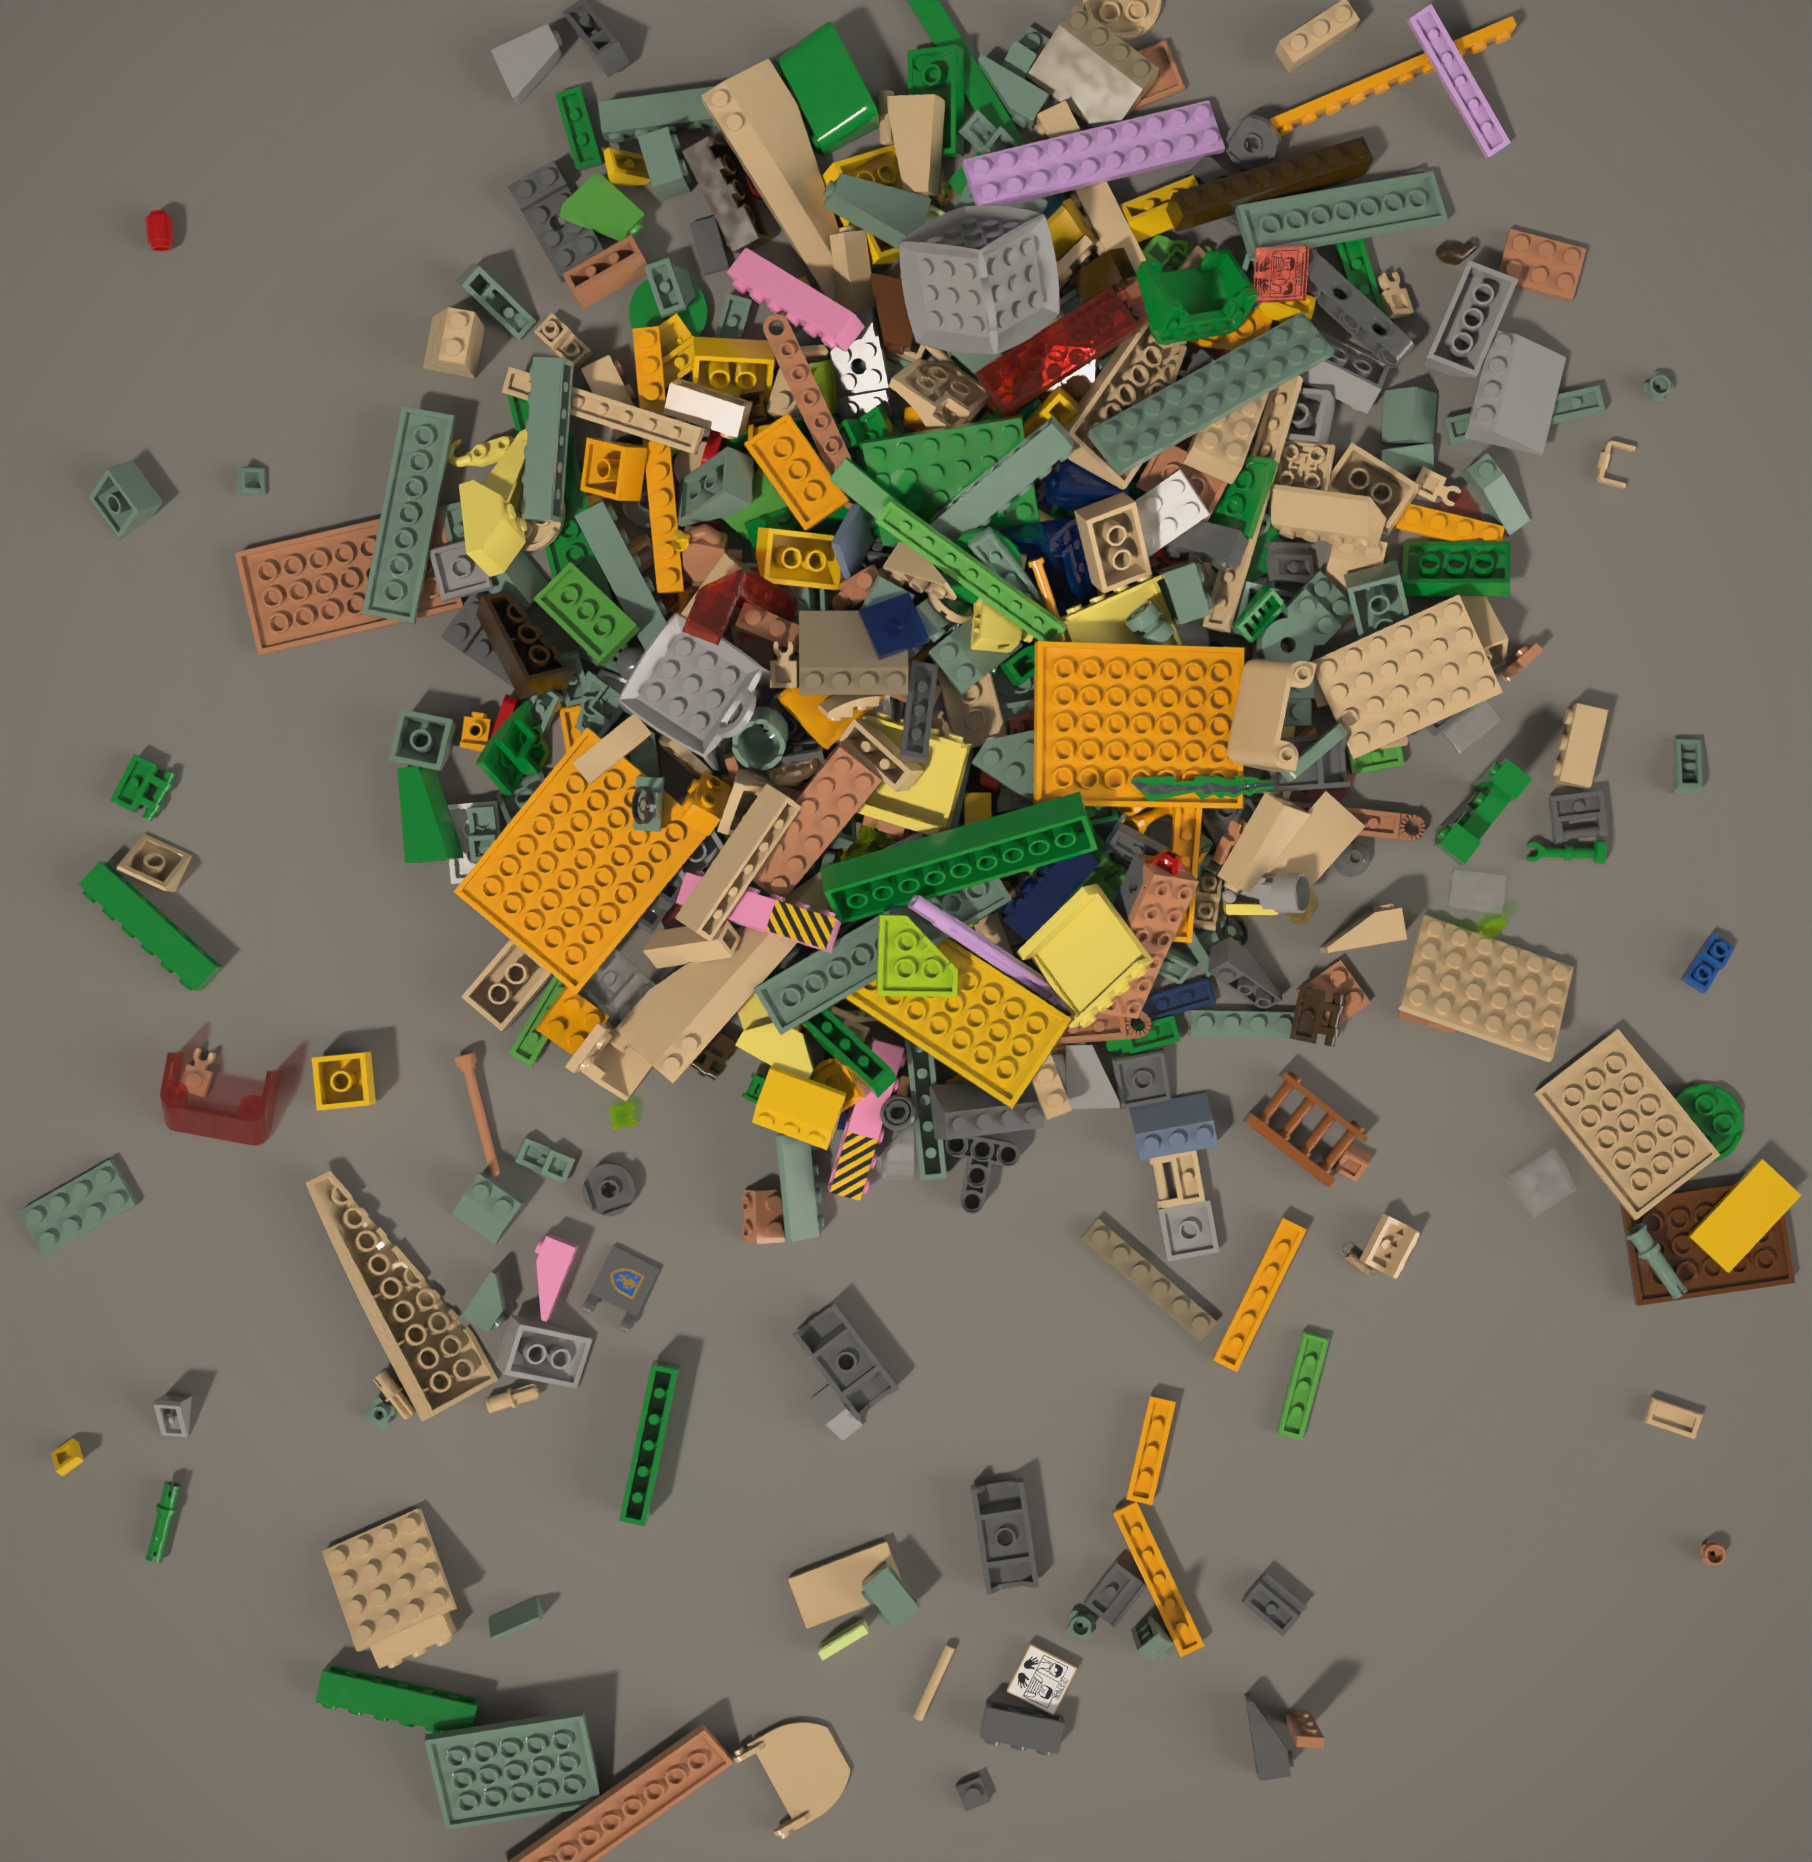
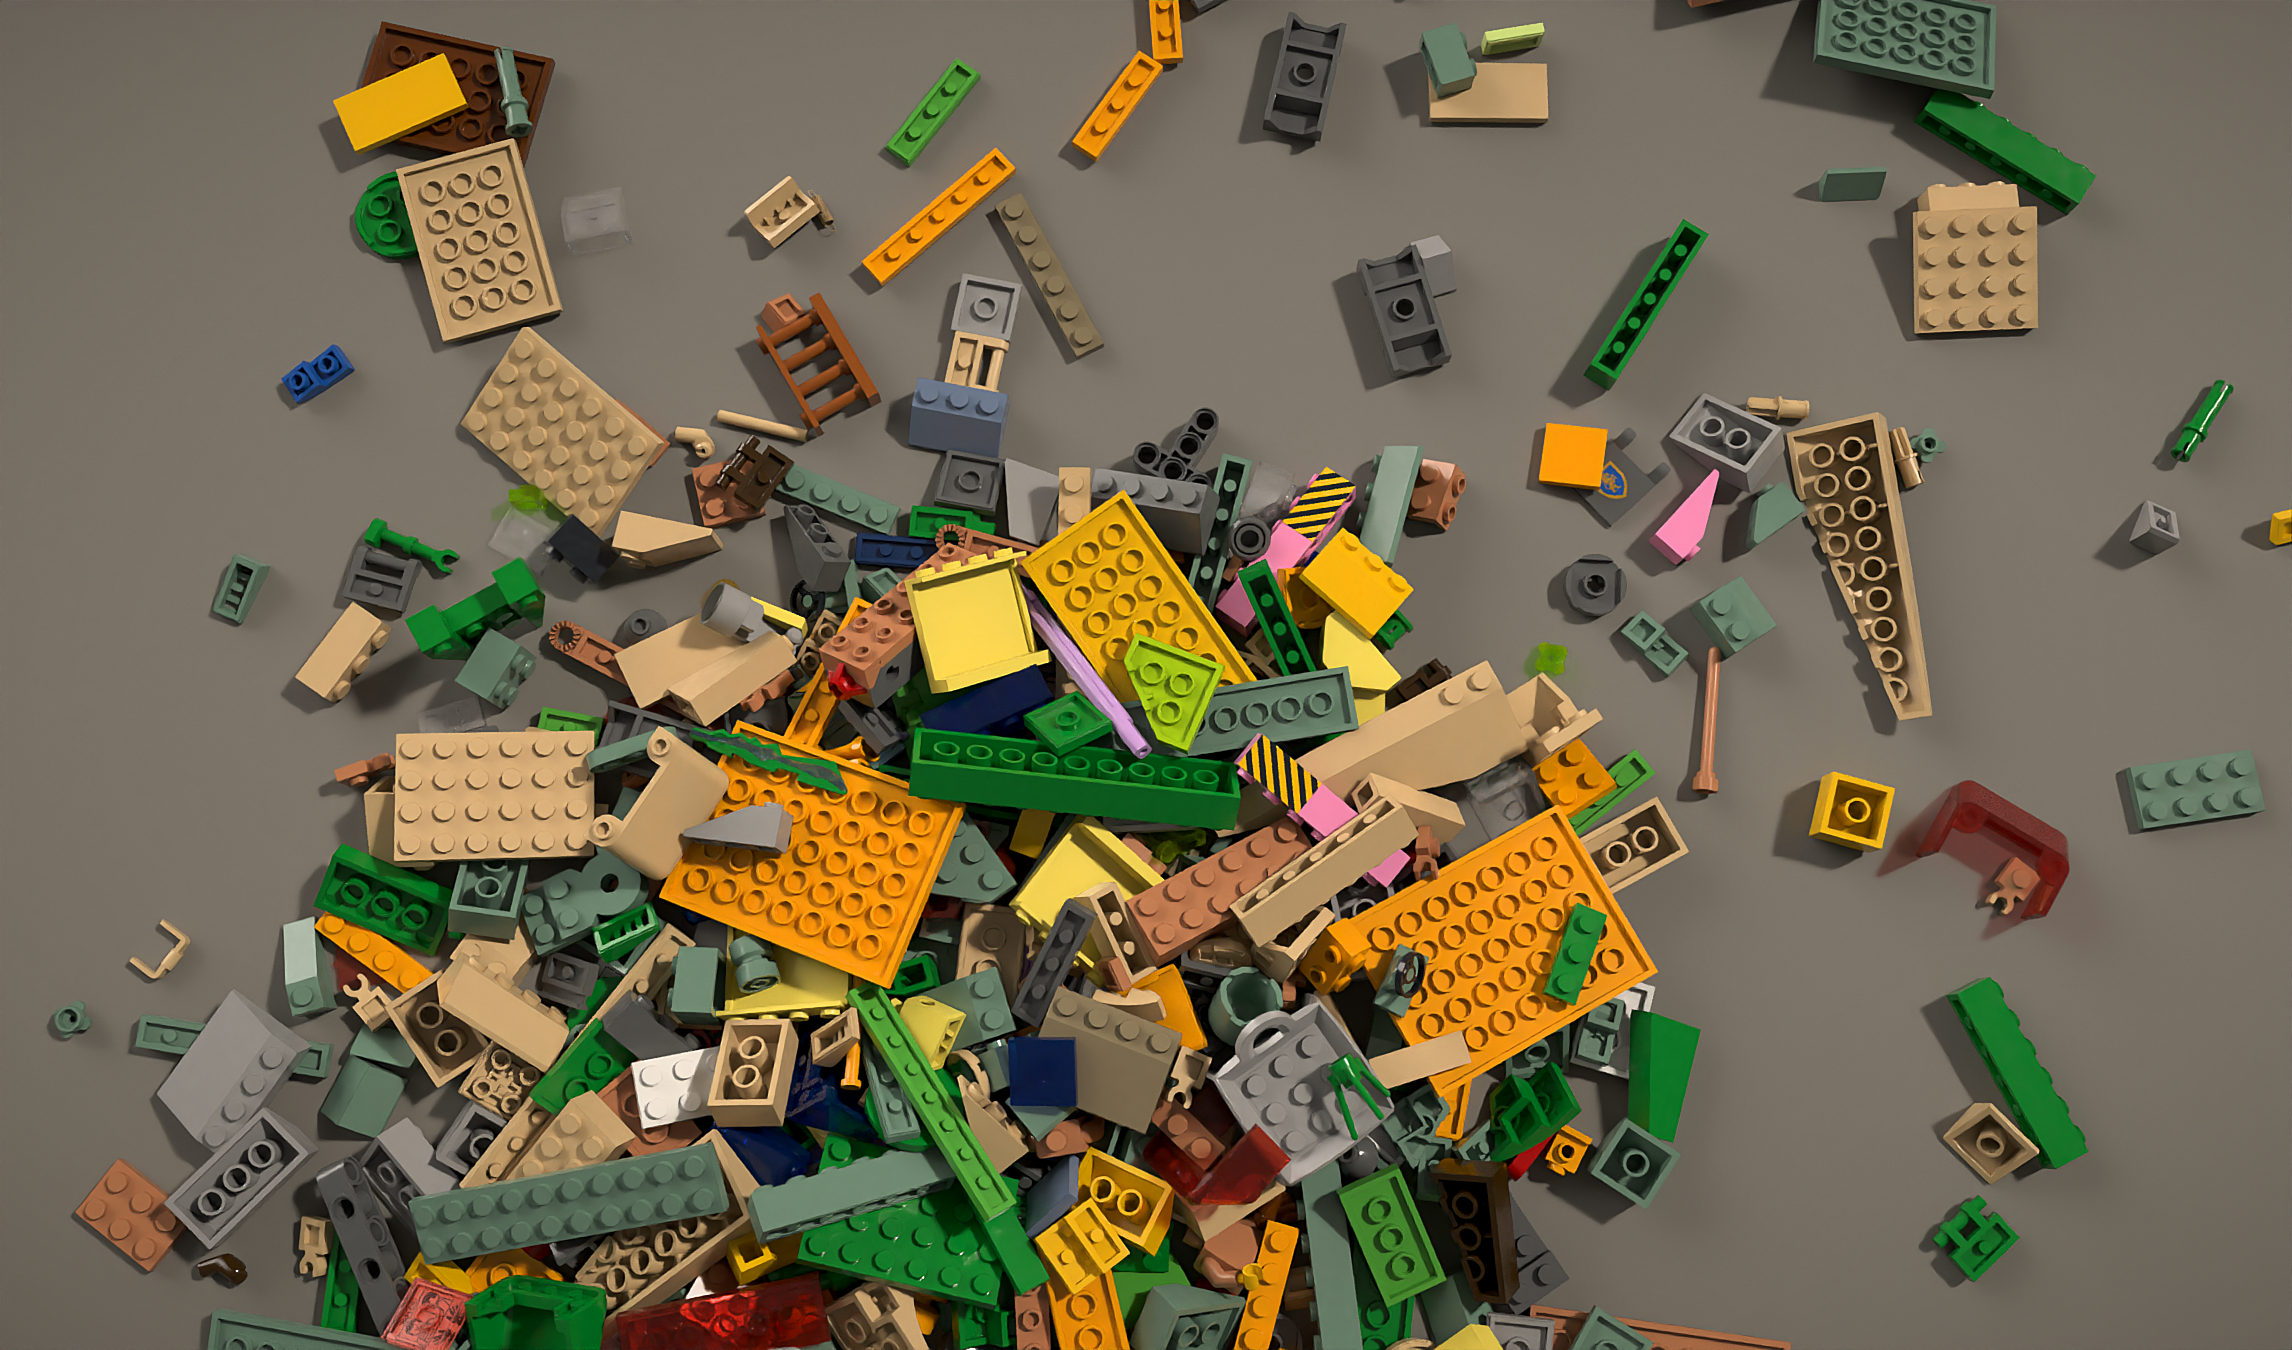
camera: 160 degrees left, 10 degrees down
(522, 878) = (1574, 954): none -> green plate
(664, 710) = (1346, 1072): none -> green plant
(664, 1291) = (1573, 456): none -> light orange tile
(665, 915) = (1426, 849): none -> nougat plate
(815, 511) = (1081, 1246): none -> yellow slope
(870, 723) = (1114, 973): none -> nougat tile
(981, 902) = (1068, 723): none -> green tile
(1062, 591) = (835, 1038): none -> tan slope
(1193, 724) = (747, 828): none -> light grey slope
(1329, 1061) = (762, 425): none -> tan bar
(1375, 1029) = (698, 438): none -> tan arm
(1429, 900) = (580, 550): none -> black brick
(1451, 778) = (497, 669): none -> sand green piece

